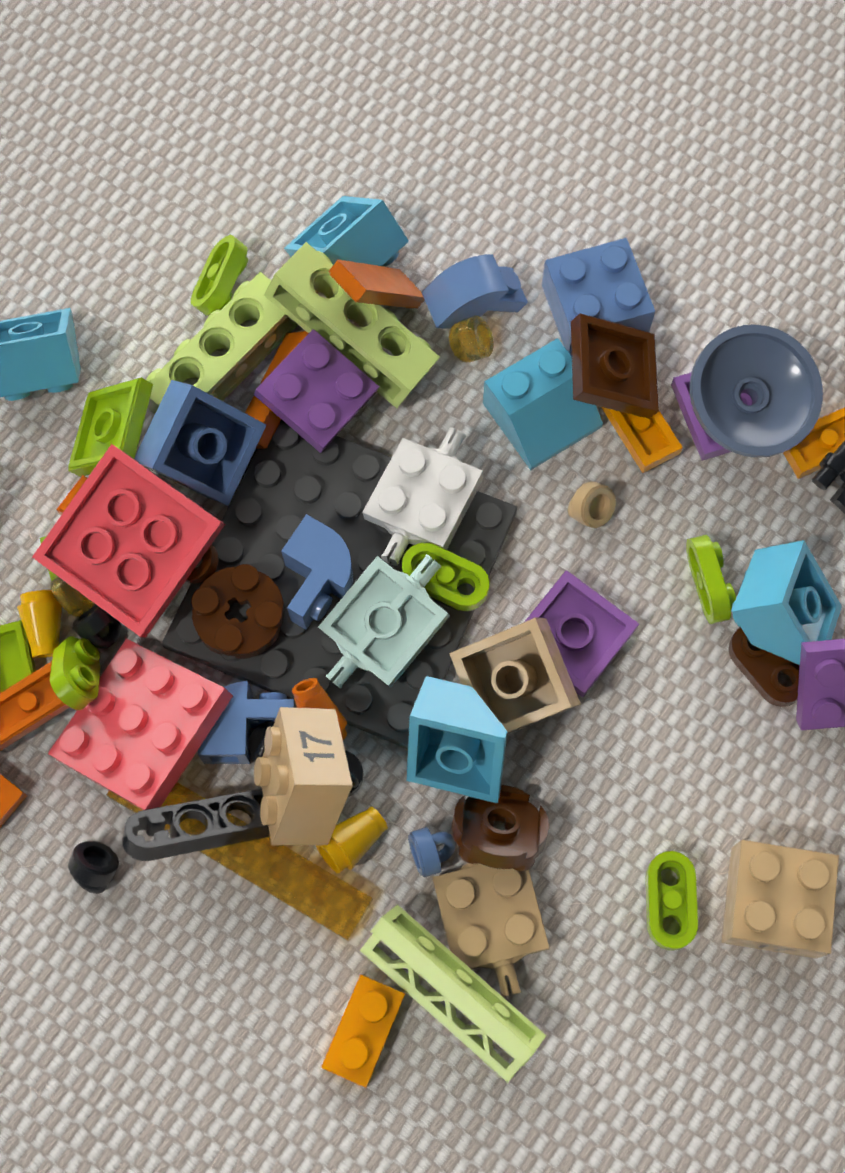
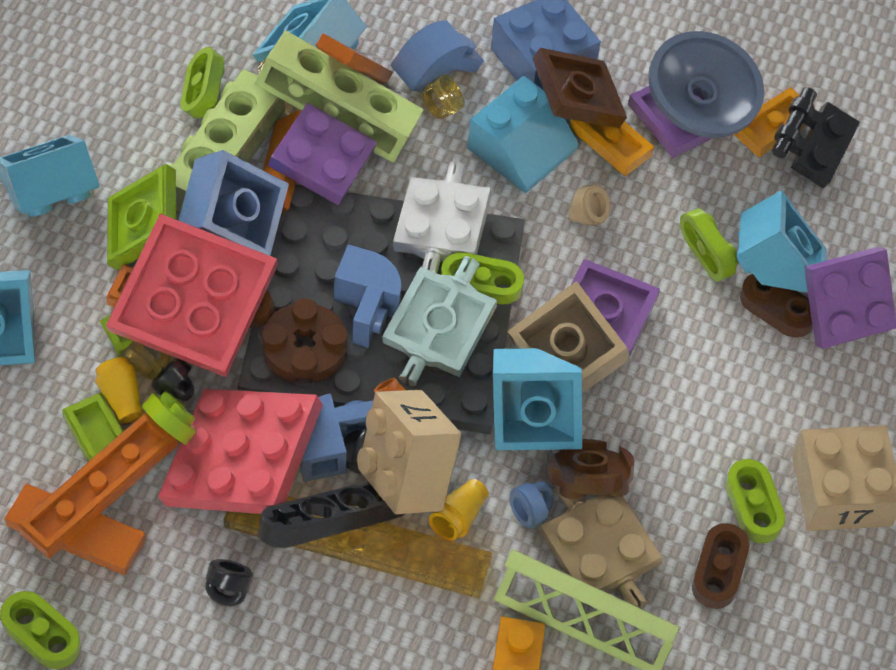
camera: 20 degrees left, 15 degrees down
(610, 970) = (719, 568): none -> reddish brown plate

